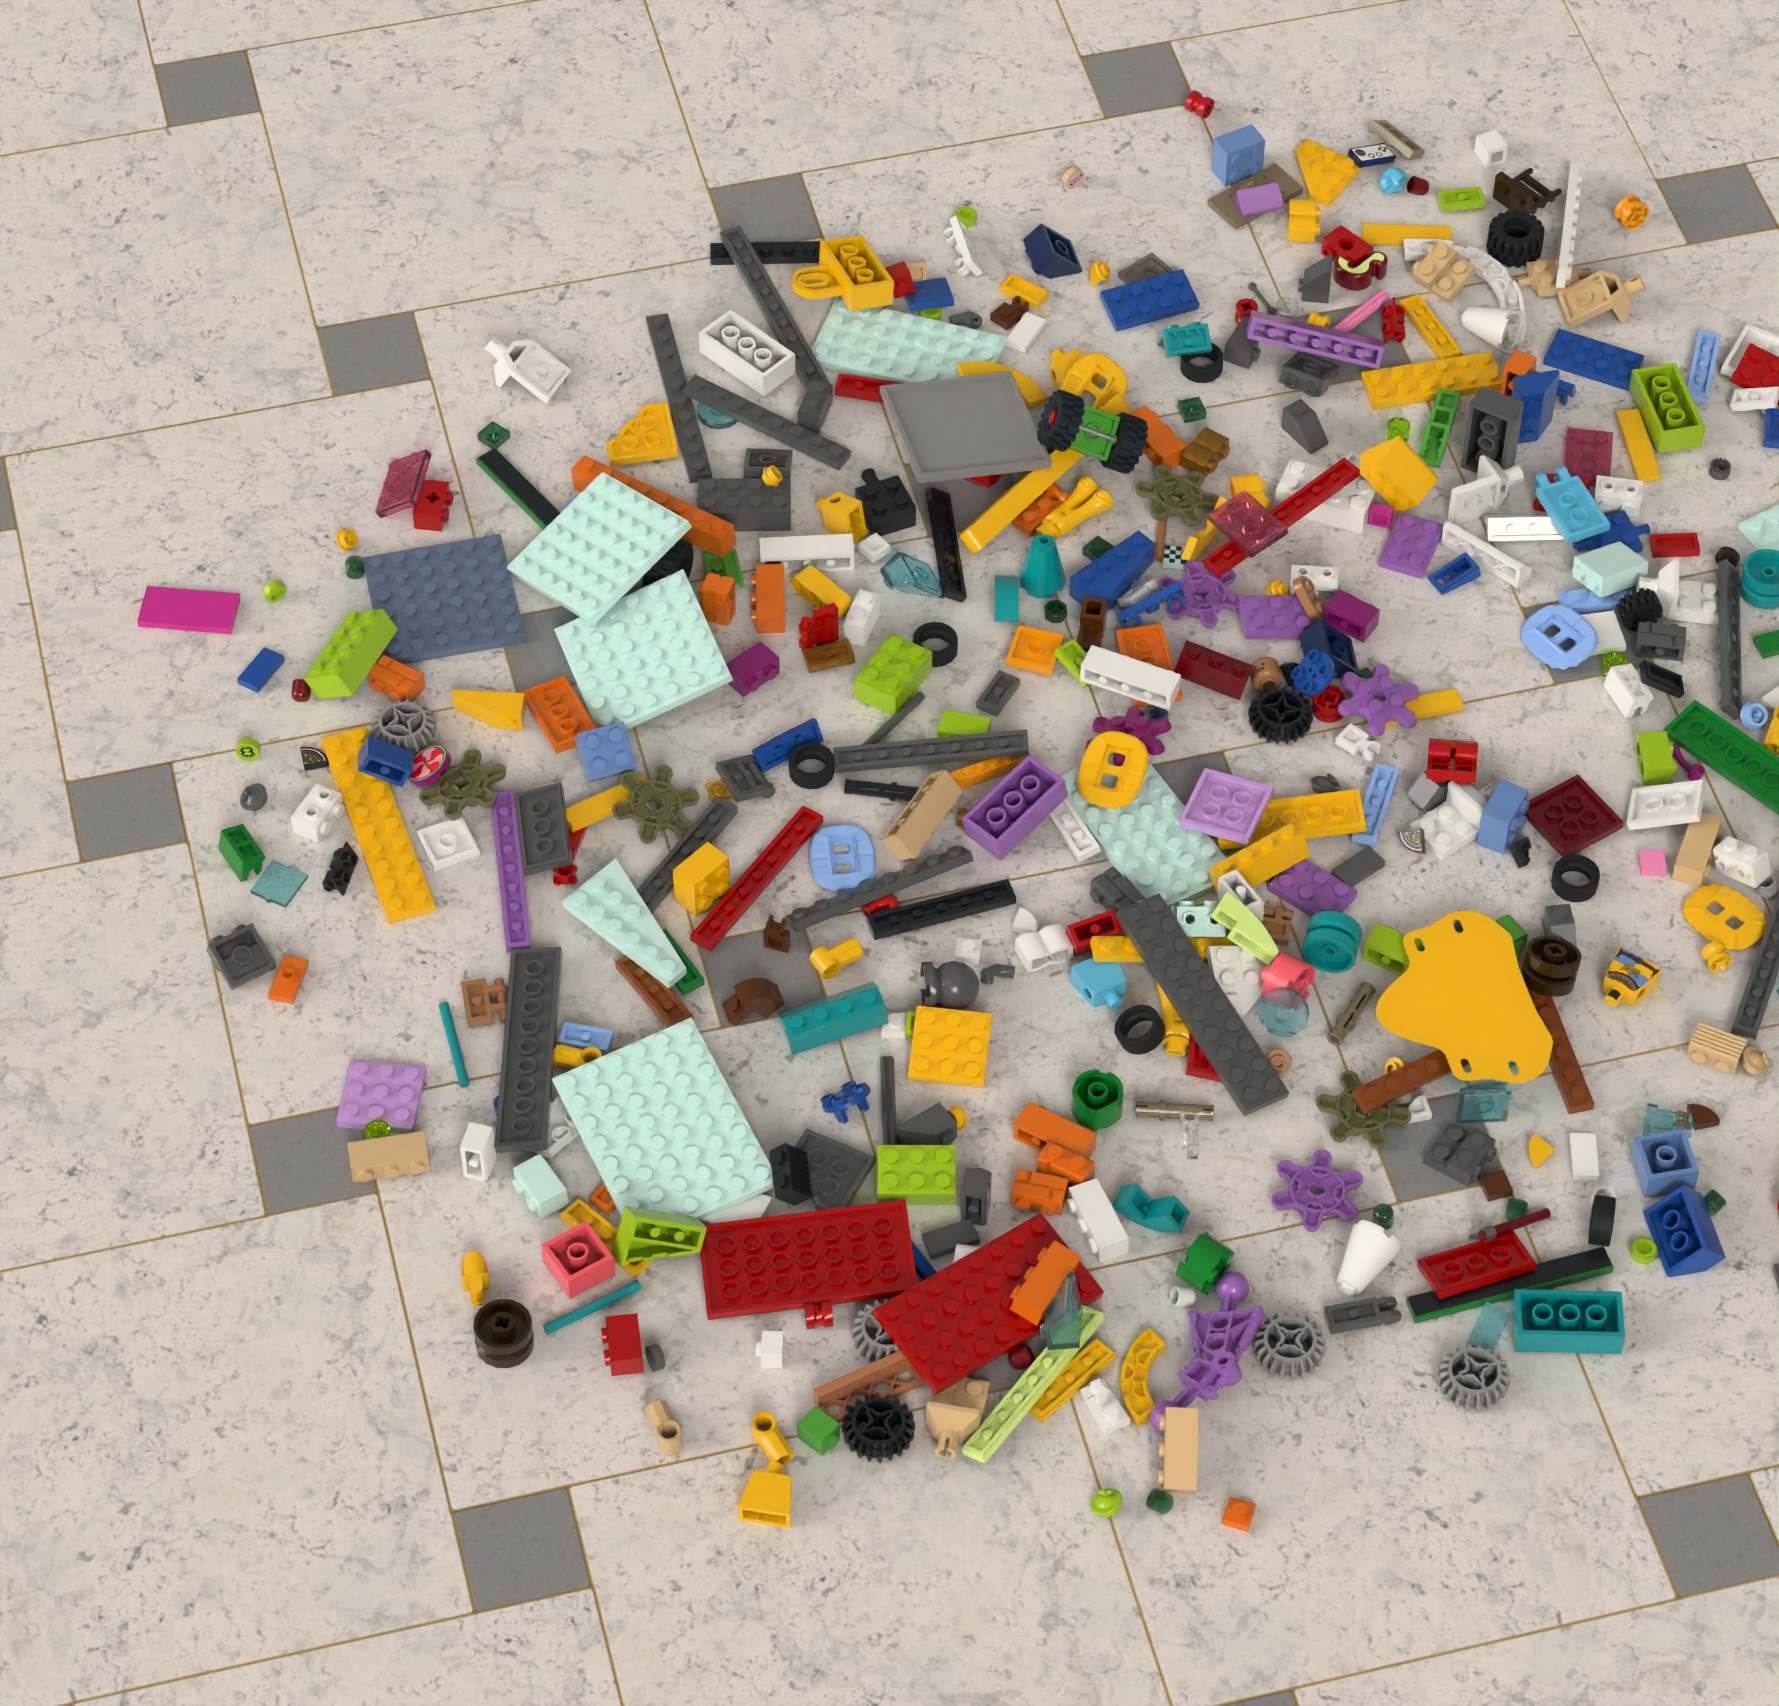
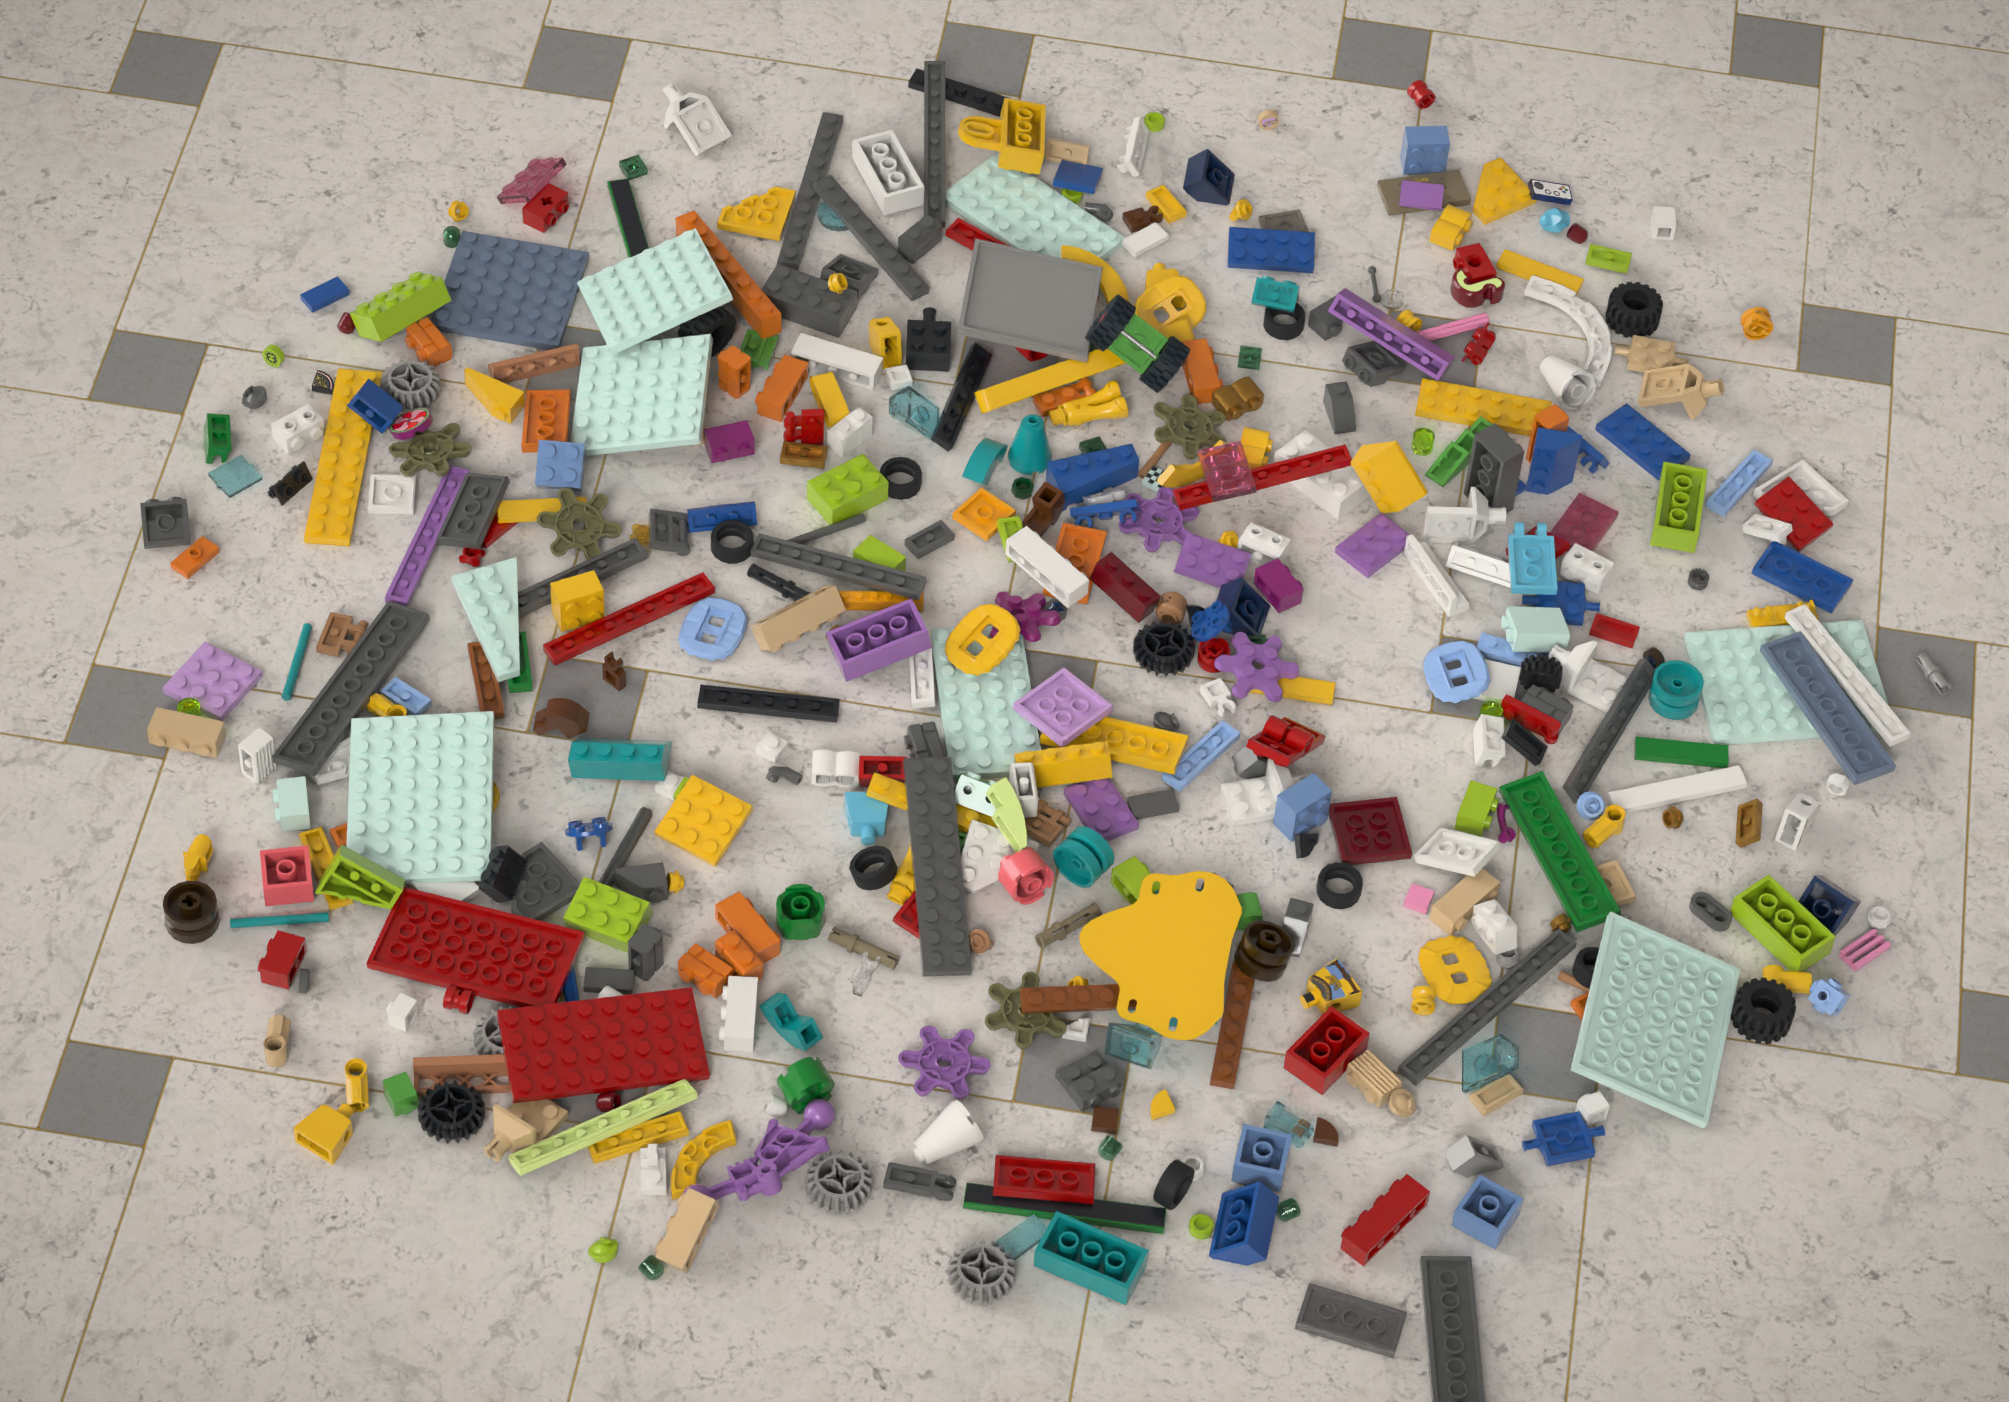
camera: 20 degrees right, 0 degrees up
(189, 610) = (296, 223): dark pink tile -> none
(274, 591) = (373, 232): lime tile -> none
(514, 661) = (535, 364): none -> nougat fence
(830, 960) = (647, 710): yellow piece -> none
(873, 890) = (717, 665): dark grey plate -> none
(887, 901) = (720, 678): red arm -> none
(902, 279) = (1057, 155): red brick -> none
(950, 985) = (730, 768): dark grey tile -> none
(1024, 922) = (833, 741): white tile -> none
(1043, 1282) = (655, 1045): orange brick -> none
(1063, 1317) = (657, 1081): clear light blue slope -> none
(1239, 1514) = (711, 1305): orange plate -> none
(1244, 308) = (1352, 284): red wheel -> none
(1283, 1012) = (1005, 900): clear light blue tile -> none
(1305, 591) = (1246, 555): medium nougat plate -> none
(1316, 281) = (1429, 286): dark grey slope -> none
(1381, 515) = (1361, 509): dark pink tile -> none
(1383, 1216) = (989, 1107): clear green piece -> none
(1396, 139) = (1581, 185): dark tan plate -> none
(1413, 840) = (1215, 799): tile -> none
(1430, 327) = (1510, 361): yellow tile -> none
(1443, 271) = (1549, 315): tan plate -> none
(1457, 564) = (1404, 576): blue slope -> none
(1491, 1232) = (1070, 1157): dark red piece -> none
(1518, 196) = (1658, 276): dark brown plate -> none
(1569, 231) = (1687, 315): white plate -> none
(1584, 1157) = (1198, 1126): white tile -> none
(1637, 445) = (1635, 531): yellow tile -> none
(1661, 655) = (1531, 719): none -> red plate
(1661, 1038) = (1326, 1050): none -> red brick

